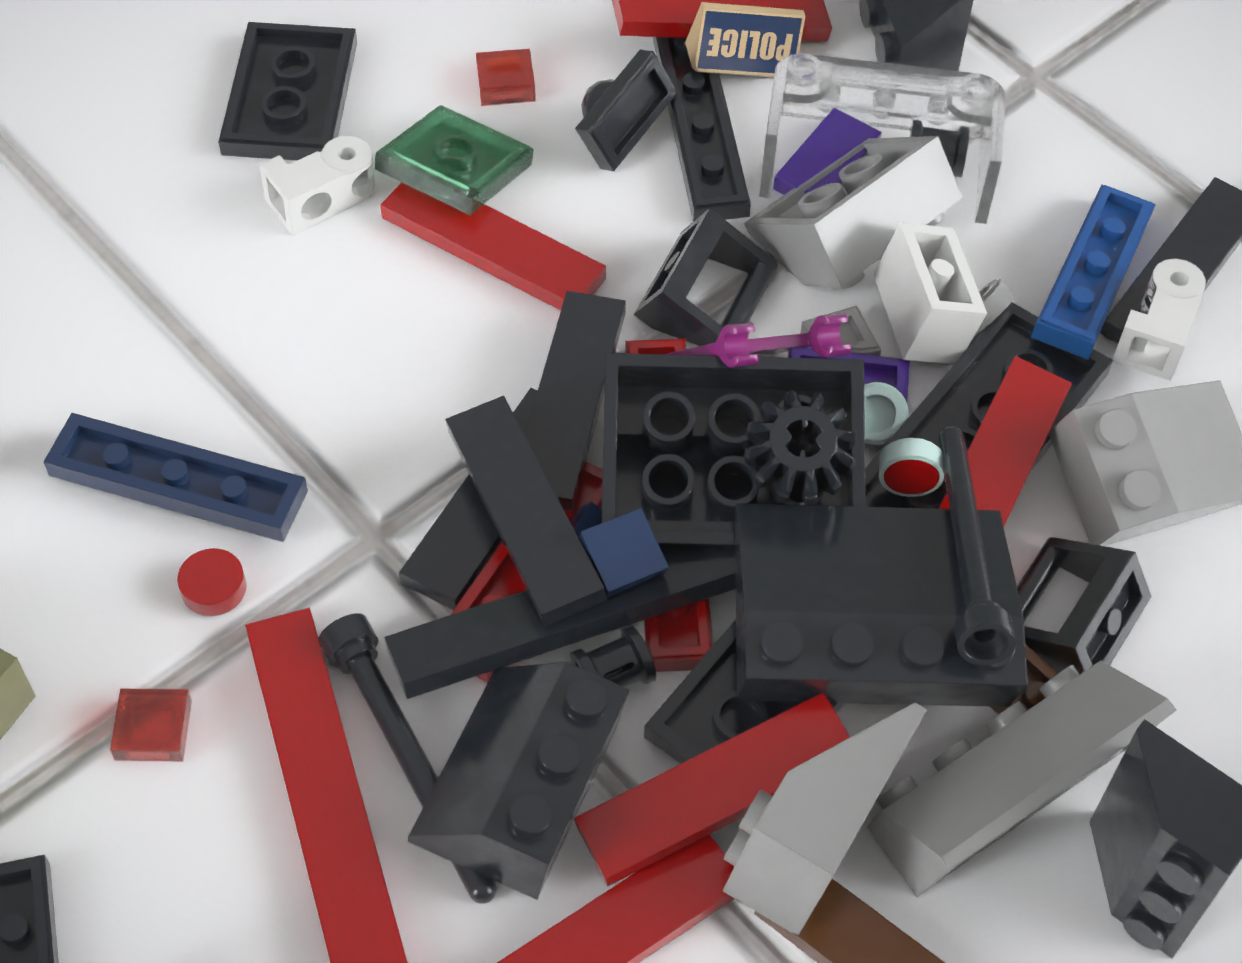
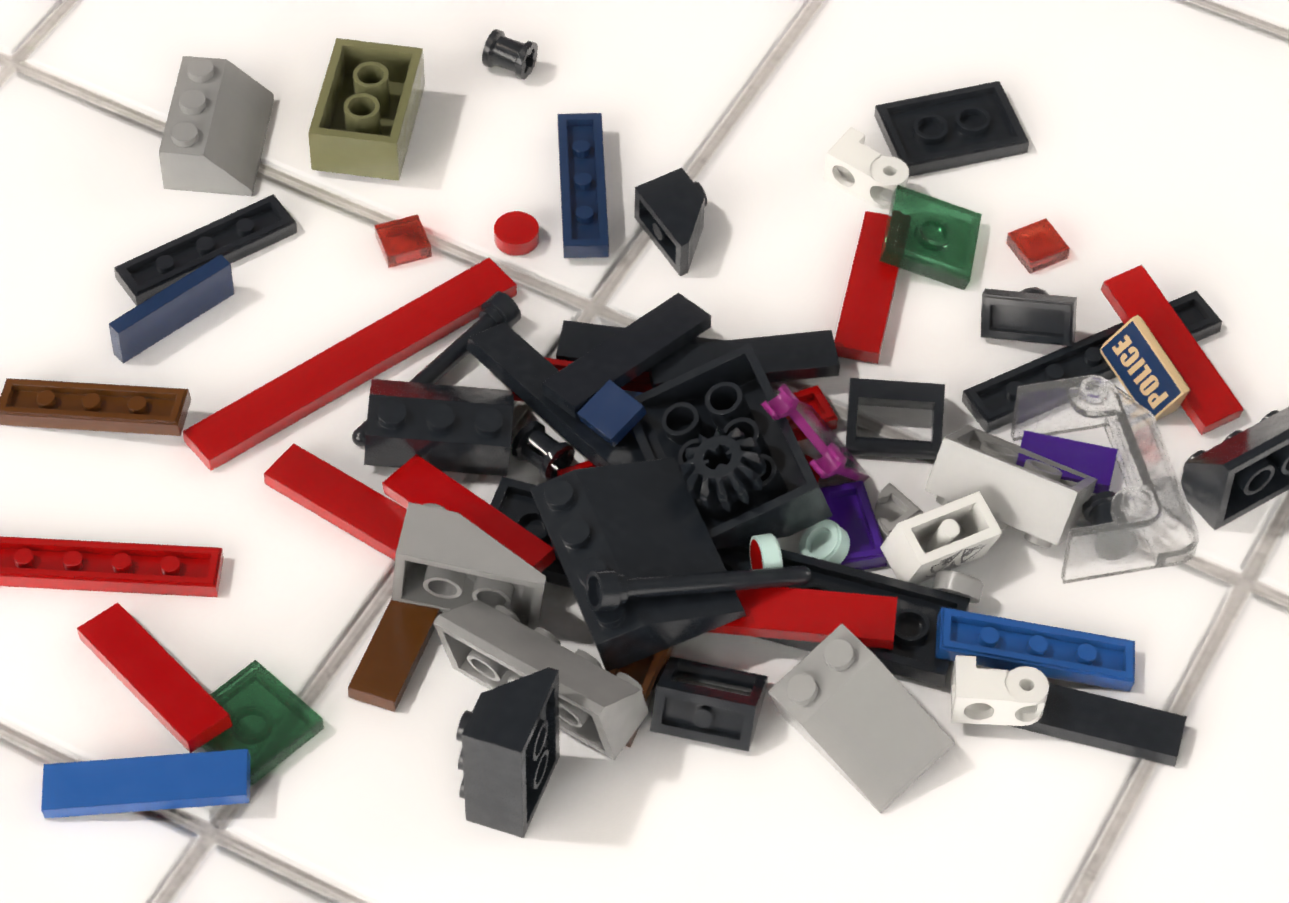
camera: 70 degrees right, 5 degrees down
(295, 394) = (672, 216): none -> black slope

